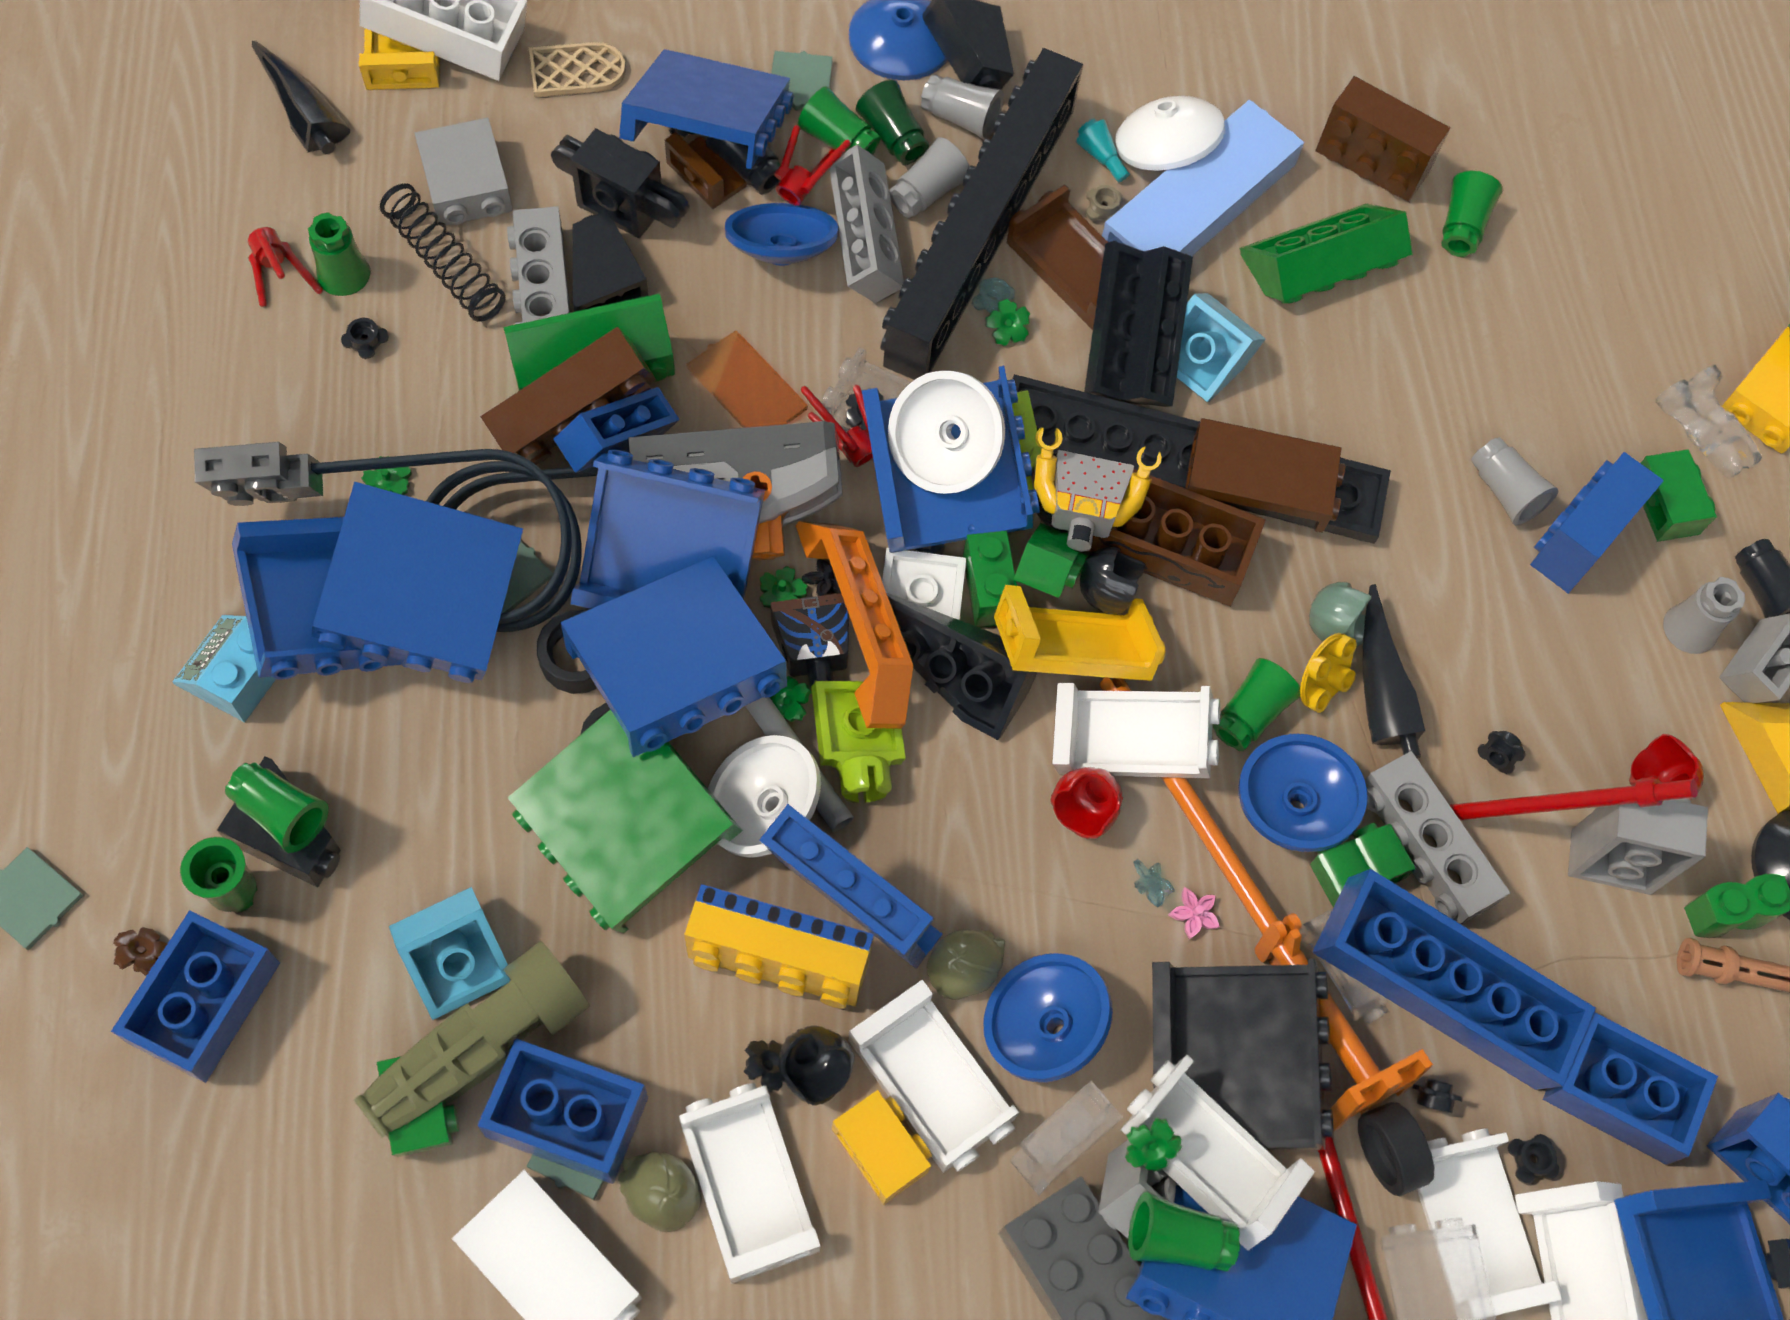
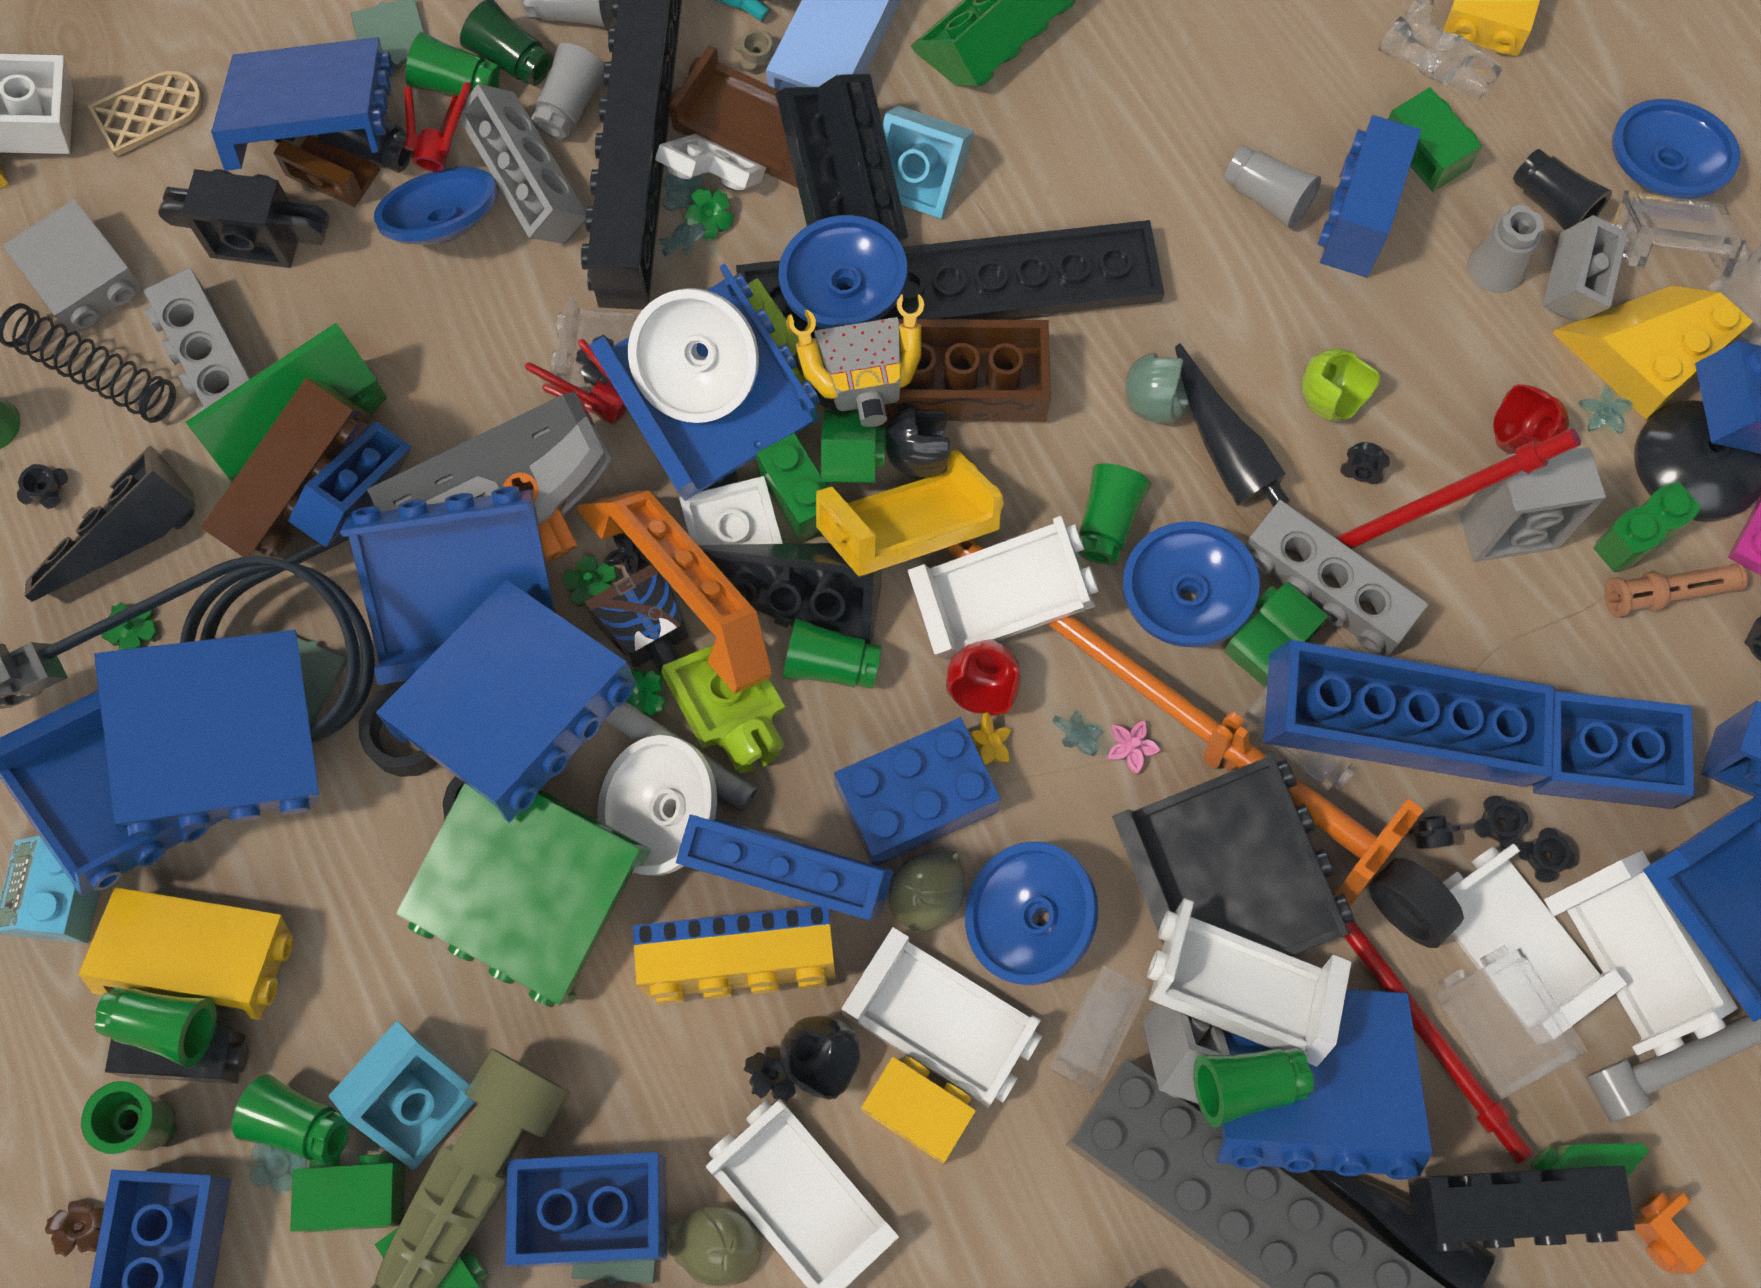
camera: 15 degrees left, 5 degrees up
(323, 966) = (275, 1167): none -> clear light blue plant
(326, 758) = (188, 950): none -> yellow panel
(348, 933) = (289, 1121): none -> green plant
(369, 1016) = (347, 1196): none -> green brick
(436, 387) = (141, 509): none -> black wedge
(603, 265) = (264, 313): black slope -> none
(746, 384) = (466, 381): clear orange piece -> none
(961, 731) = (830, 657): none -> green plant
(978, 334) = (683, 237): none -> clear light blue plant
(990, 875) = (917, 792): none -> blue brick
(1018, 271) = (698, 155): none -> white plate
(1071, 859) = (990, 741): none -> yellow plant
(1108, 398) = (841, 254): none -> blue dish
(1152, 1145) = (1188, 1006): green plant -> none
(1266, 471) = (1028, 270): reddish brown panel -> none
(1328, 672) = (1168, 451): yellow dish -> none
(1503, 1099) = (1513, 816): none -> black plate
(1504, 673) = (1338, 384): none -> lime hair
(1743, 791) = (1606, 411): none -> clear light blue plant

